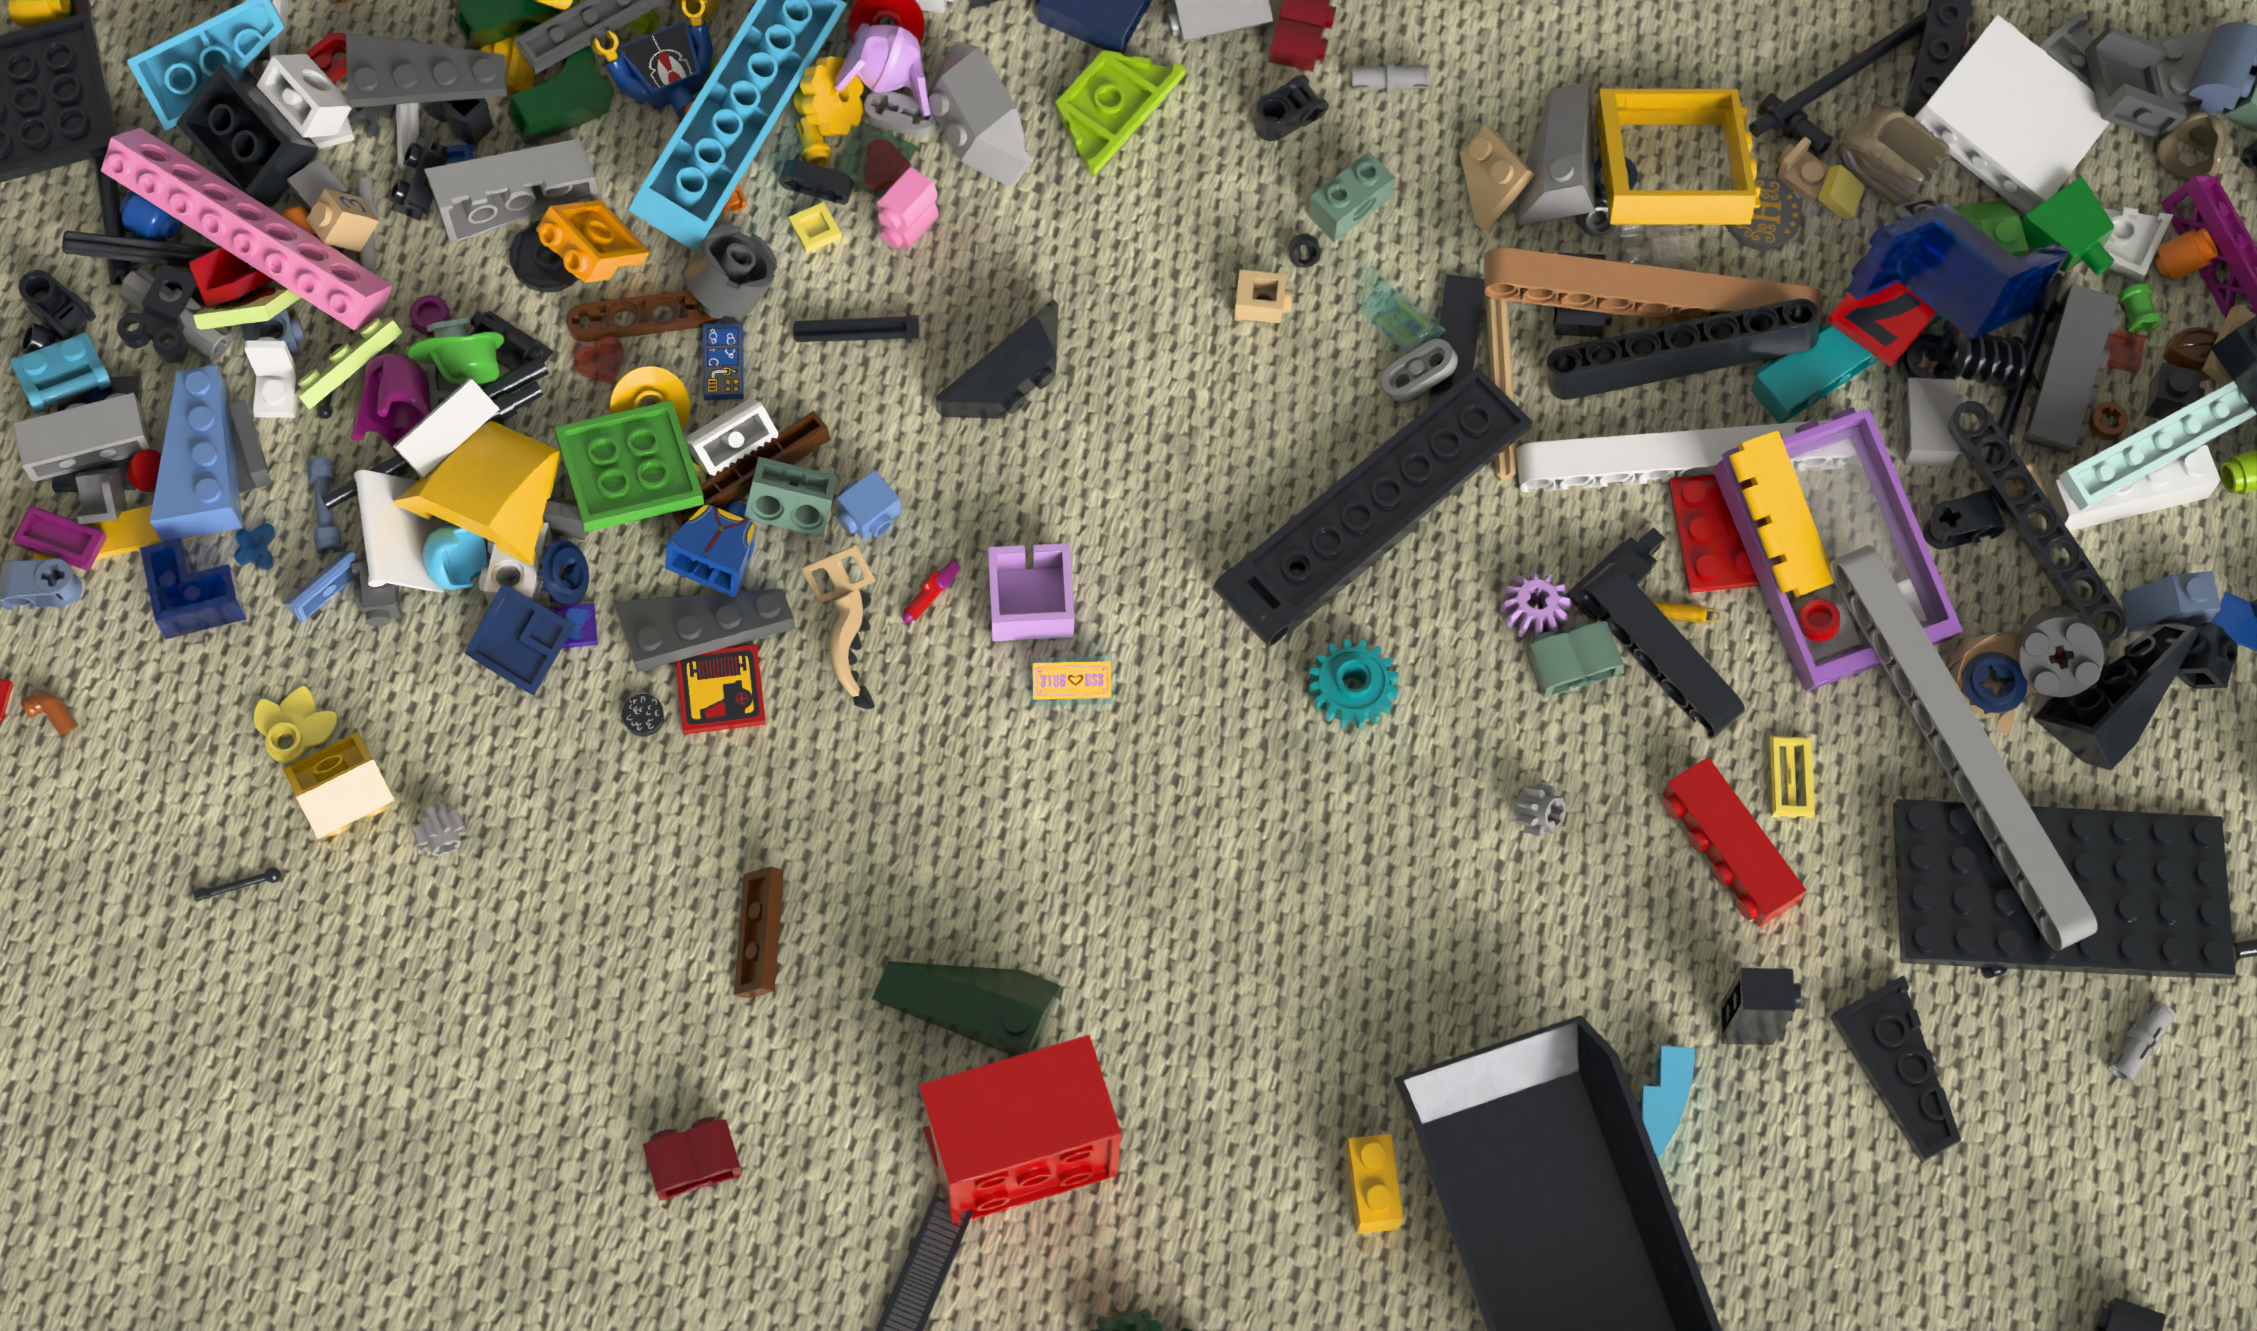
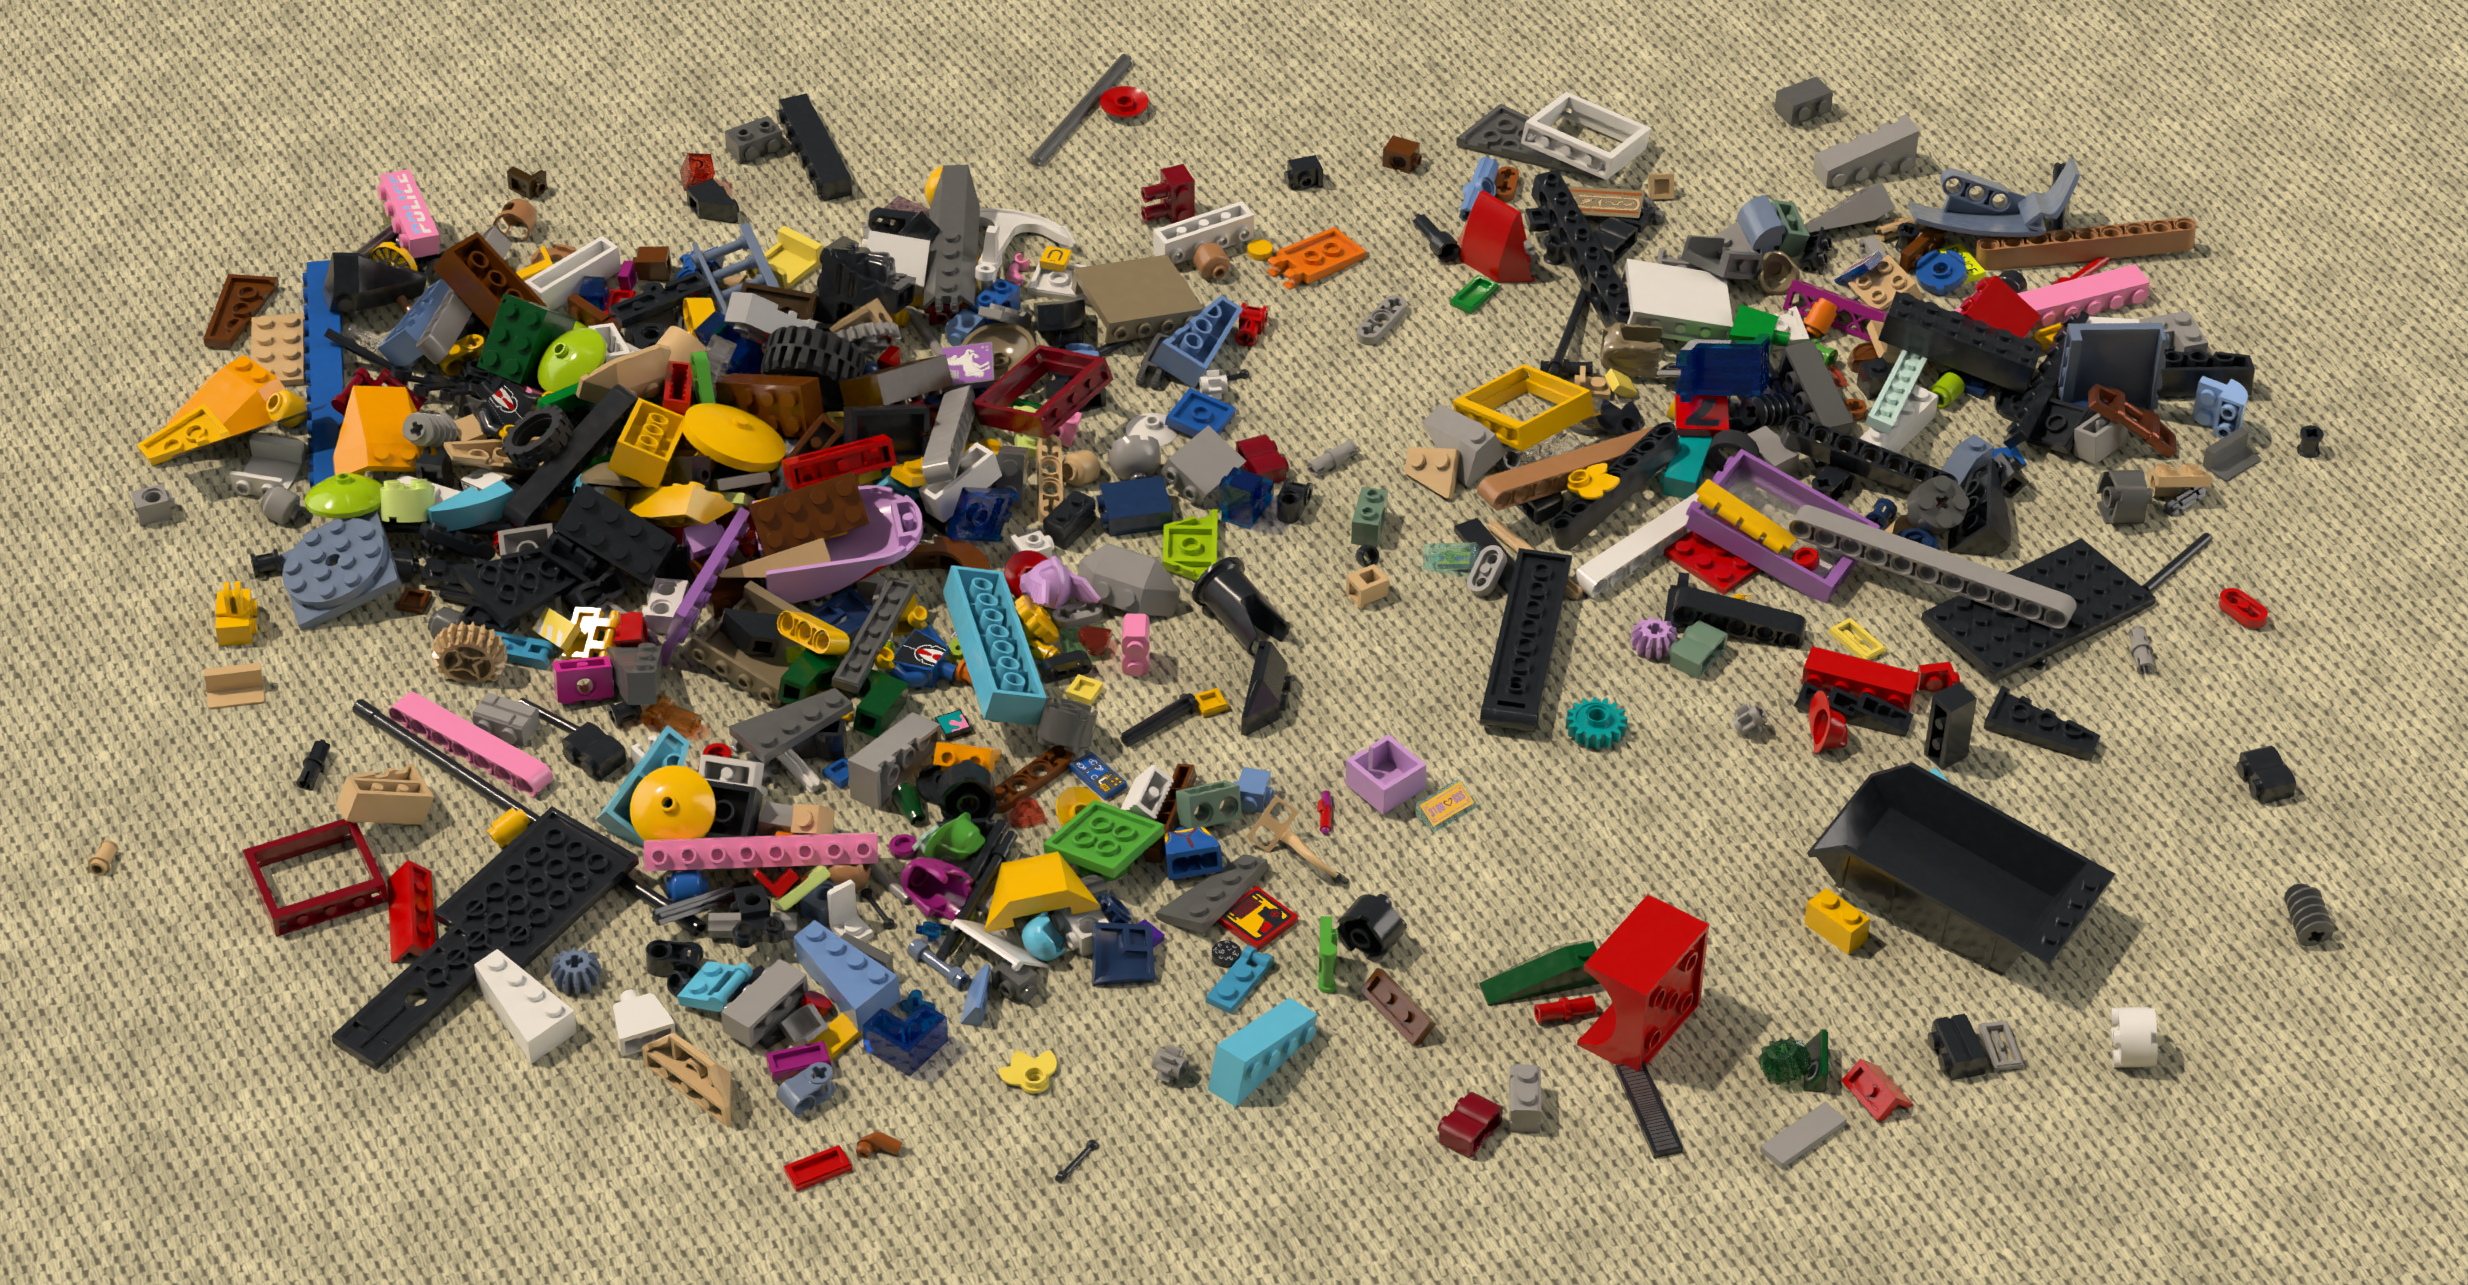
camera: 35 degrees left, 25 degrees down
(211, 105) = (691, 809): none -> yellow dish
(314, 324) = (843, 872): none -> medium nougat hair
(338, 786) = (1090, 1077): slope -> none
(346, 361) = (886, 884): yellowish green plate -> none
(355, 455) = (932, 930): none -> piece
(411, 191) = (829, 775): black hinge -> none
(446, 427) = (985, 870): white piece -> none
(482, 258) = (907, 801): none -> dark green cone
(533, 298) = (967, 789): none -> black brick
(552, 884) = (1260, 1049): none -> medium azure wedge
(626, 177) = (953, 724): none -> tile
(626, 763) = (1240, 980): none -> dark azure plate
(732, 802) = (1327, 955): none -> bright green plate
(781, 1171) = (1525, 1098): none -> light grey brick
(817, 802) = (1371, 926): none -> black brick
(931, 1065) = (1564, 1009): none -> red pin
(939, 342) = (1211, 702): none -> yellow tile
(1078, 218) = (1238, 603): none -> black piece
(1229, 72) = (1244, 497): none -> clear blue brick
(1627, 889) = (1826, 724): none -> red piece
(1646, 331) = (1592, 481): none -> yellow plate
(1687, 880) = (1863, 712): none -> black slope
(1790, 241) = (1618, 420): none -> black plate
(1829, 903) = (1937, 676): none -> red bracket
(1875, 387) = (1730, 439): none -> black tyre
(2001, 599) = (1889, 513): none -> dark blue bush

